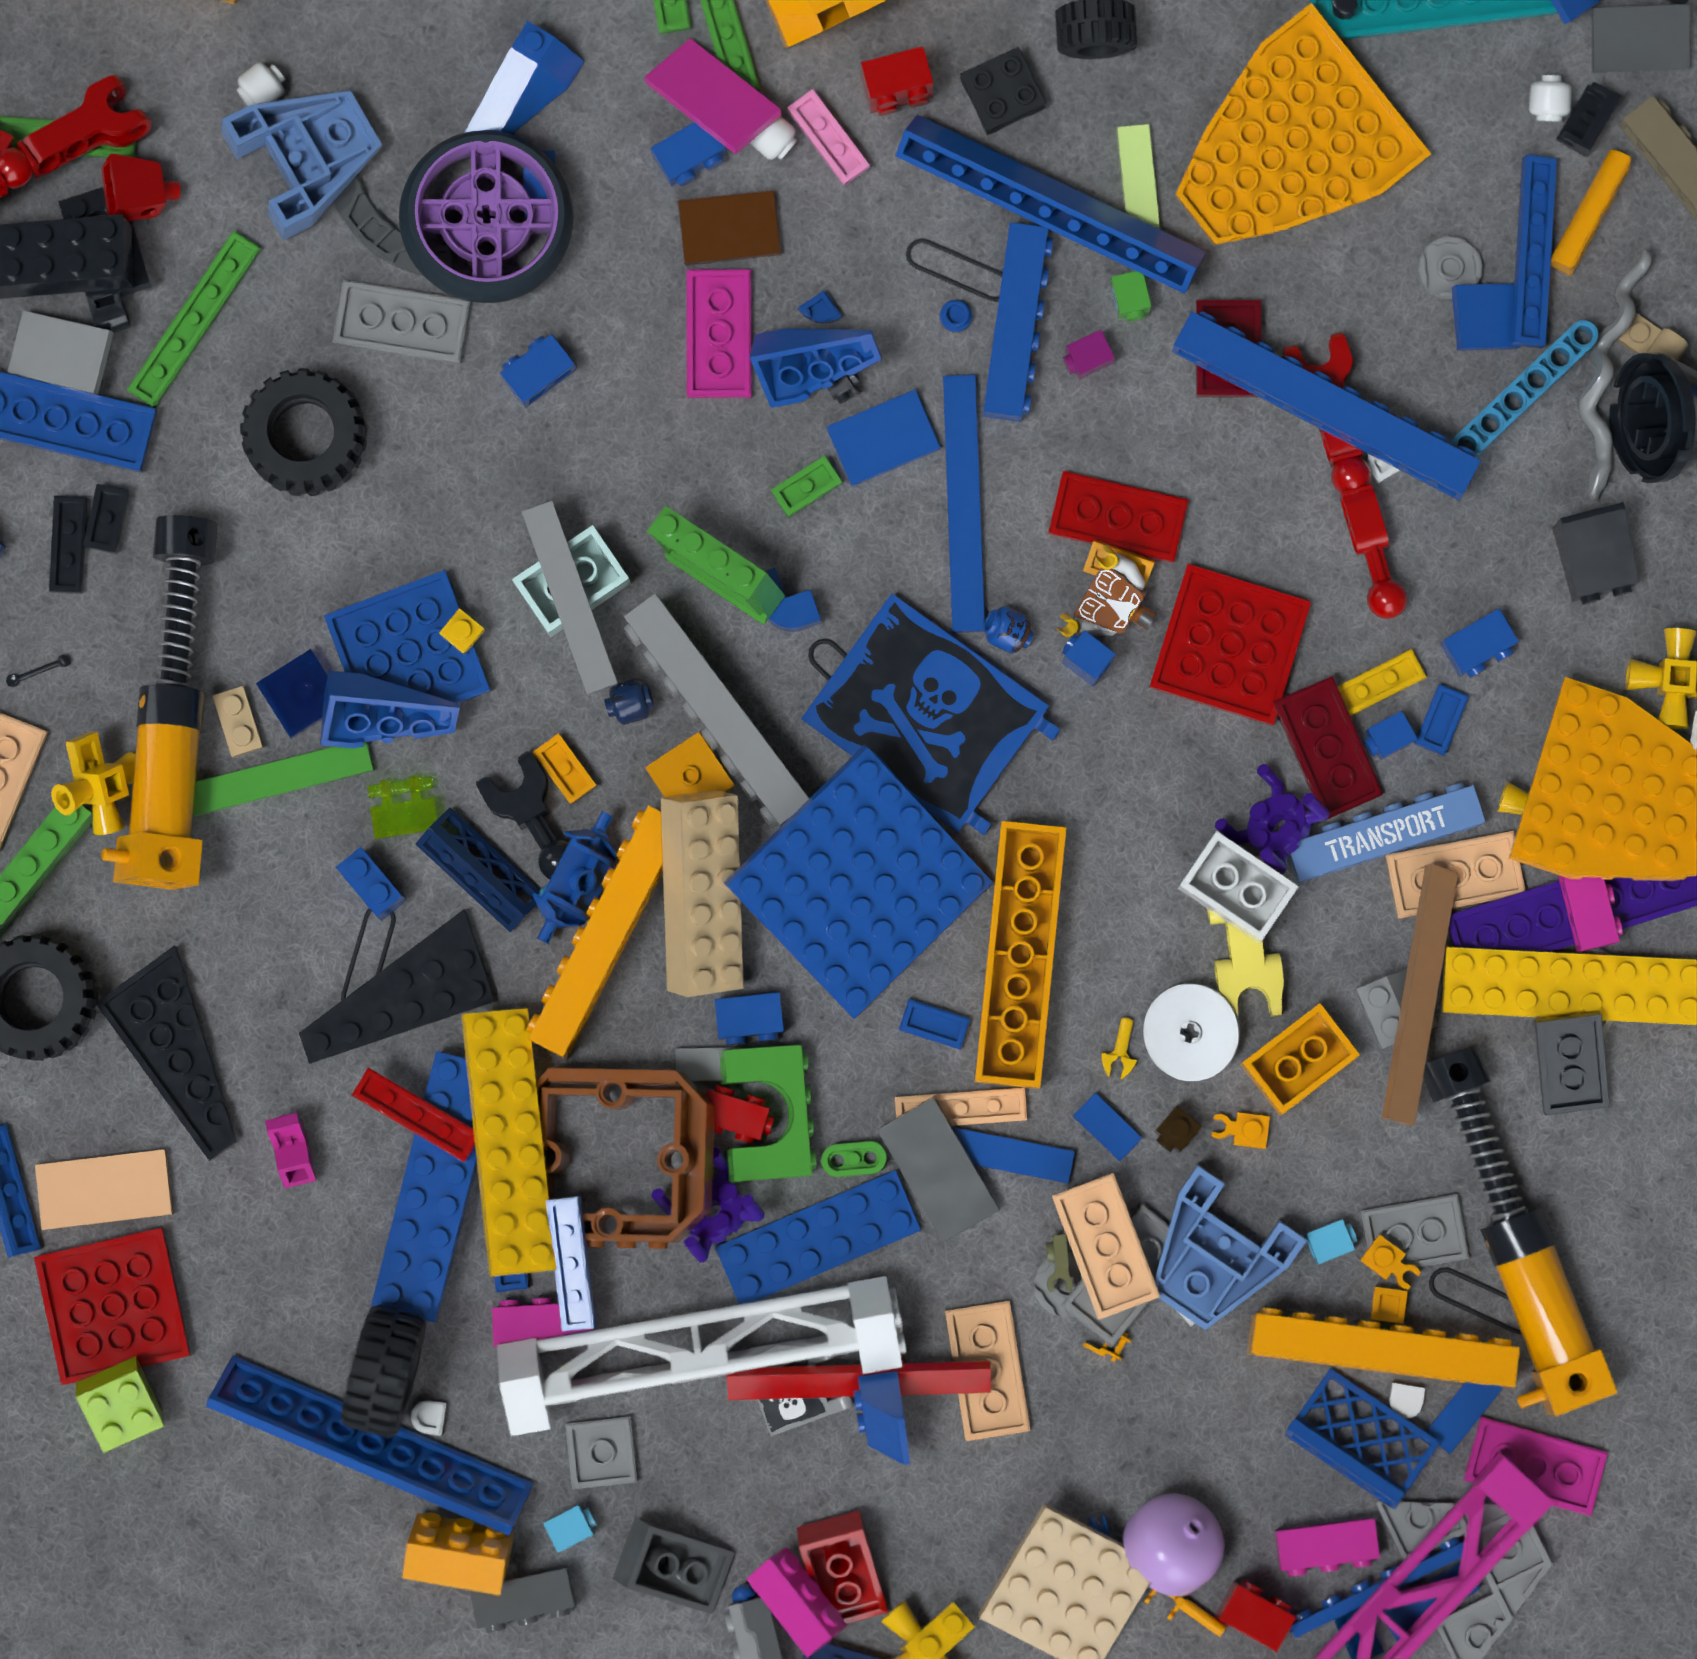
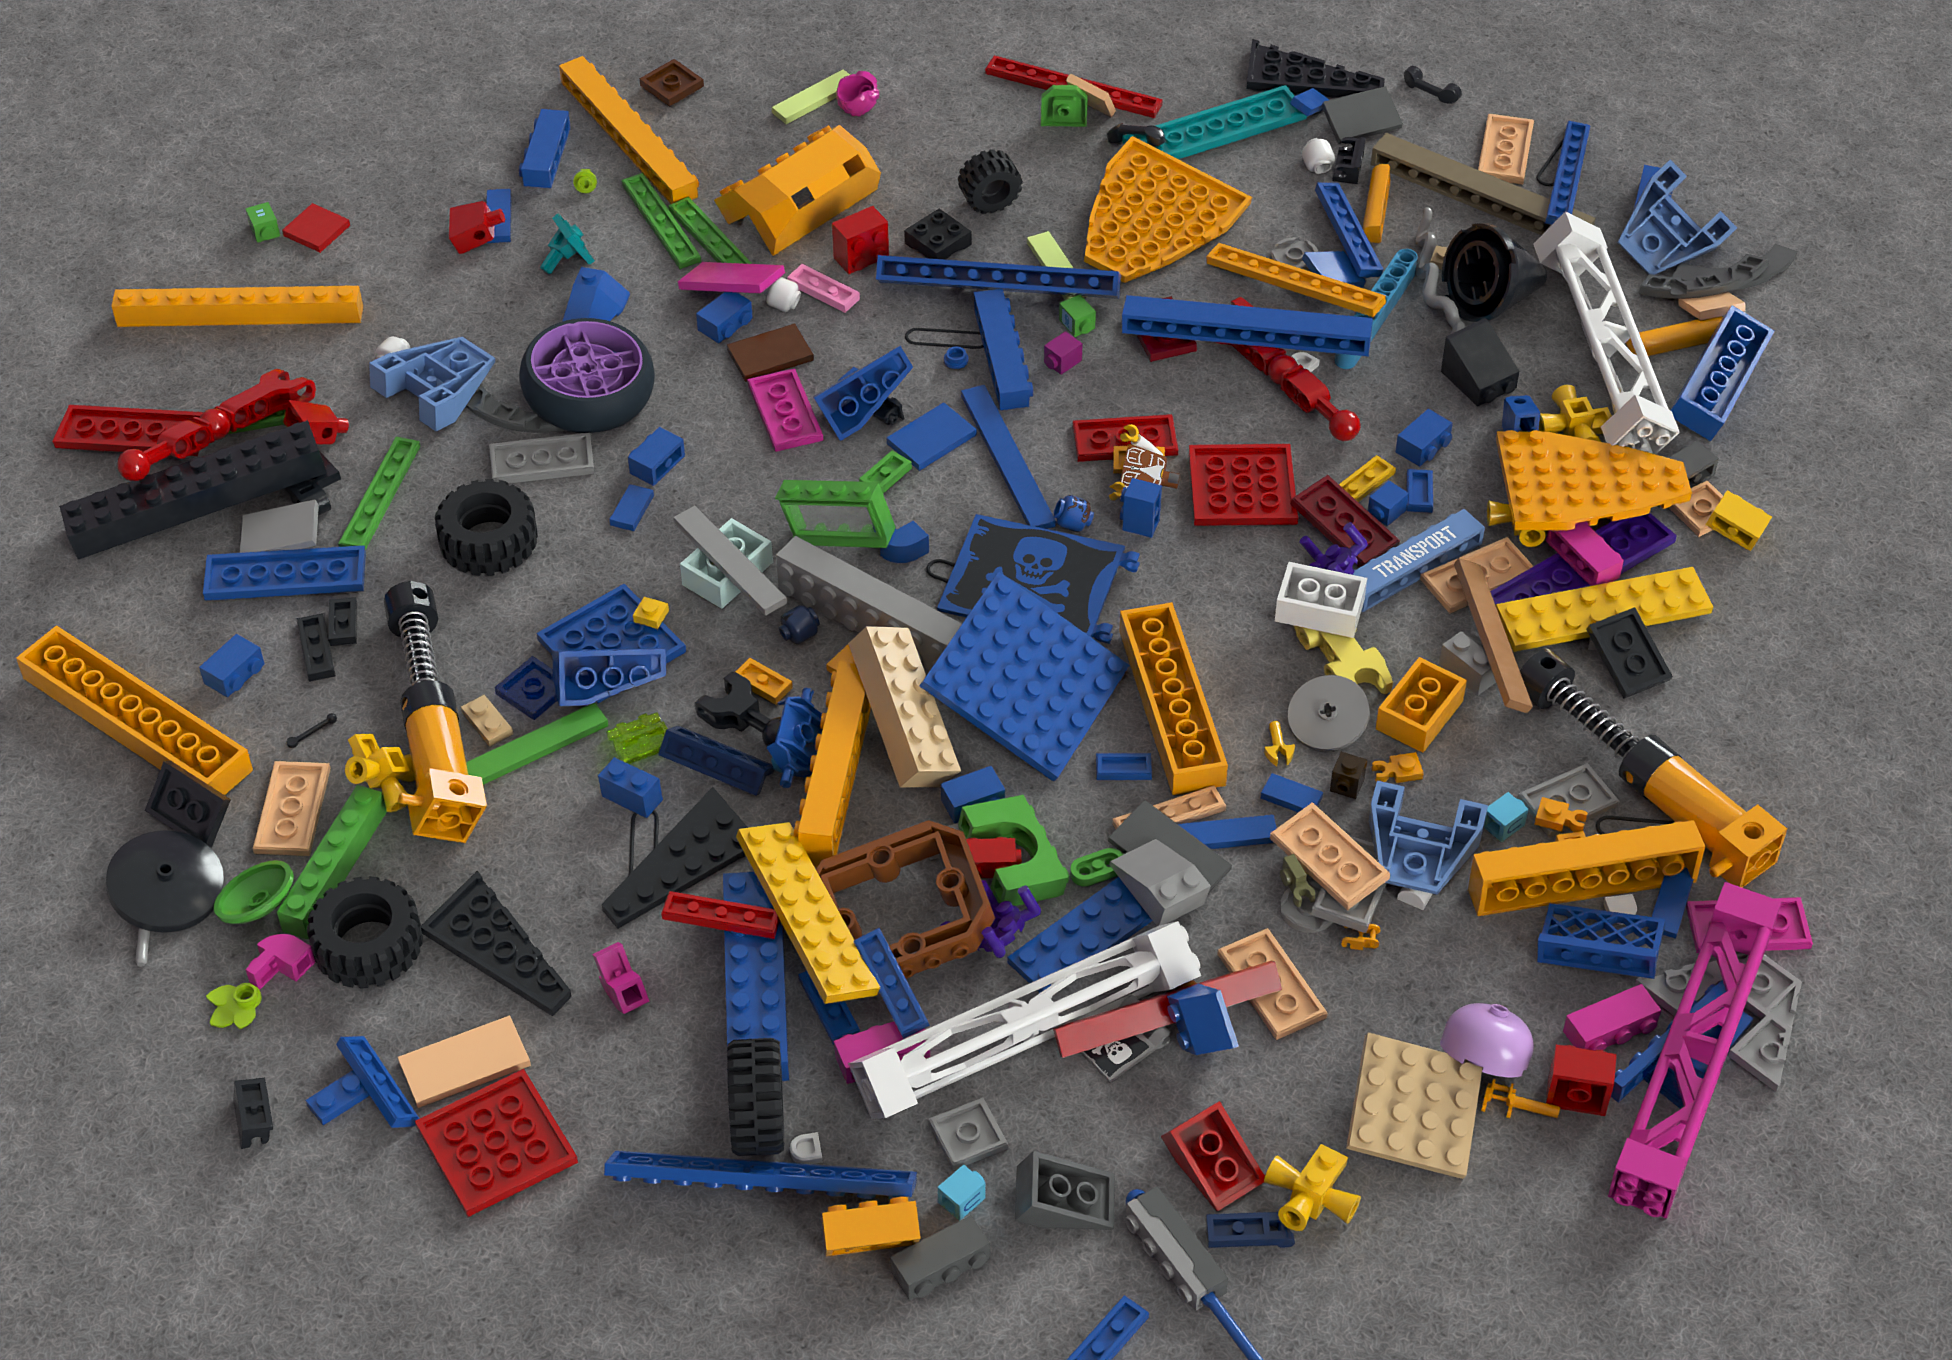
camera: 20 degrees left, 35 degrees down
(119, 1404) = (524, 1204): lime brick -> none
(488, 440) = (631, 507): none -> blue tile
(797, 1602) = (1186, 1177): dark pink brick -> none
(909, 1212) = (1161, 881): none -> light grey slope
(1425, 330) = (1296, 279): none -> light orange plate
(1606, 656) = (1520, 414): none -> blue torso

